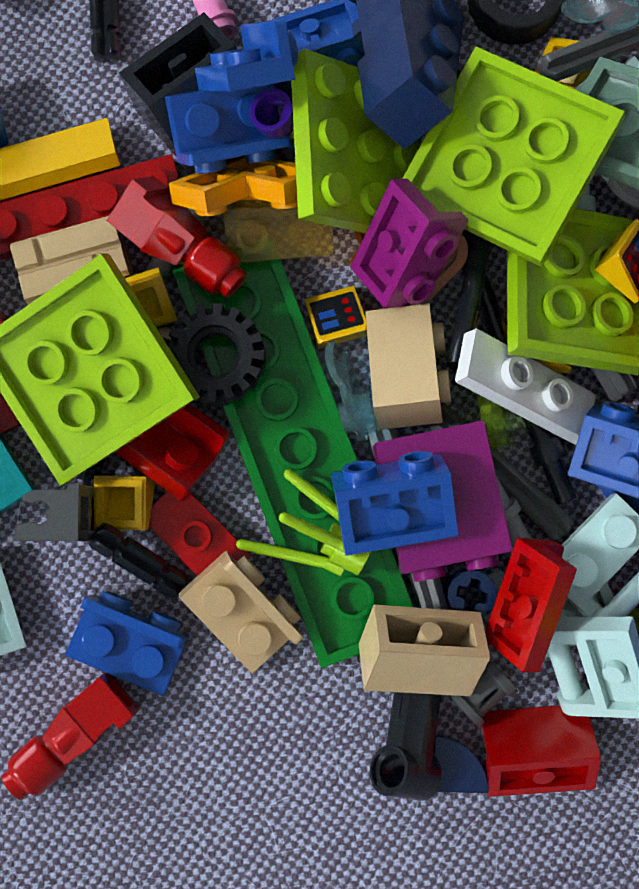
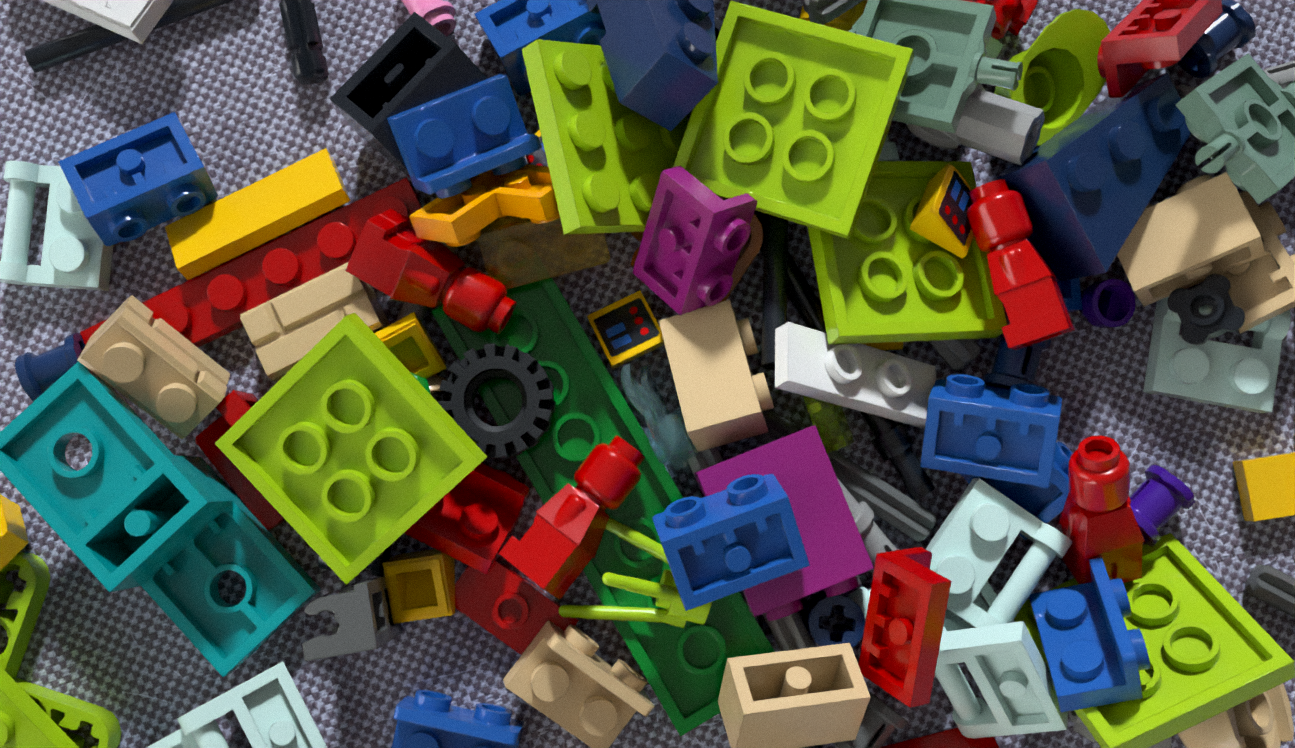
camera: 10 degrees left, 0 degrees up
(138, 560) = (449, 650): black axle -> none
(263, 466) = (574, 519): none -> red piece
(265, 113) = (504, 117): dark purple hinge -> none
(266, 59) = (494, 63): blue bracket -> none

